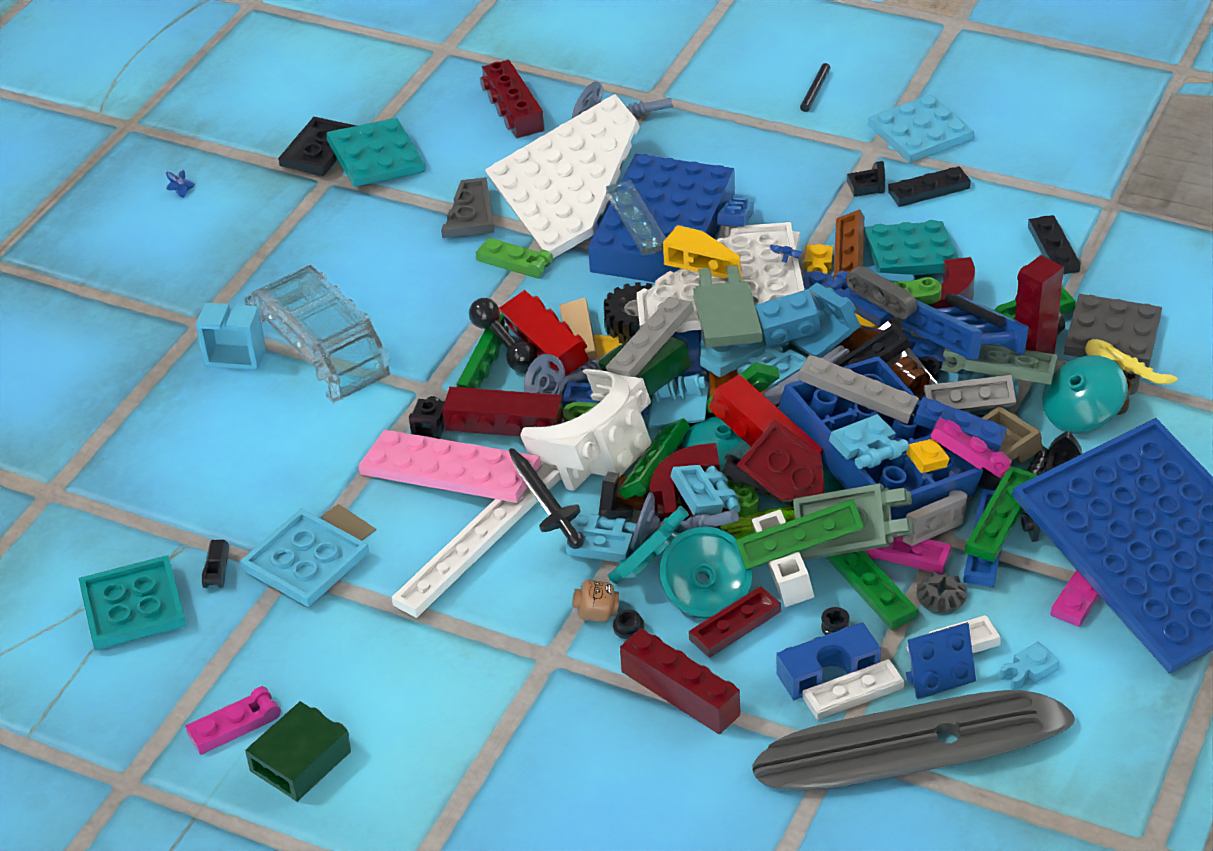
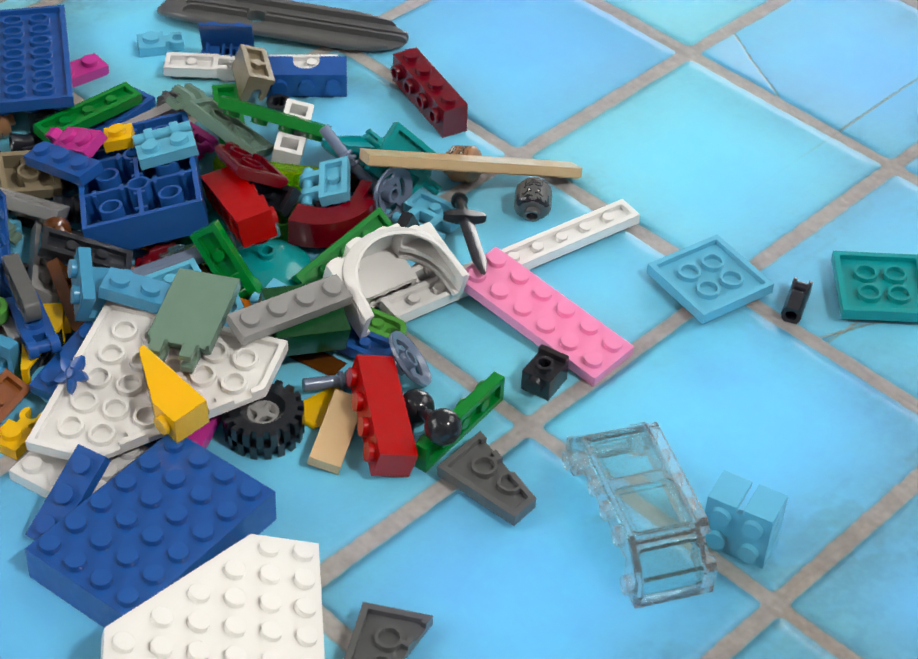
camera: 165 degrees left, 0 degrees up
(233, 720) = (799, 176): dark pink plate -> none
(298, 750) = (749, 132): dark green brick -> none
(348, 522) = (658, 312): dark tan sticker -> none
(440, 328) = (485, 478): none -> dark grey wing
(499, 411) = (467, 343): dark red brick -> none
(507, 582) = (533, 199): none -> dark grey head
(514, 257) = (358, 560): bright green plate -> none
(575, 567) = (469, 163): none -> tan tile
(627, 623) = (443, 144): black plate -> none
(636, 217) = (202, 483): clear light blue plate -> none
(734, 621) = (360, 121): dark red plate -> none
(858, 388) = (135, 190): light grey plate -> none
(877, 615) = (252, 72): none -> dark tan hinge

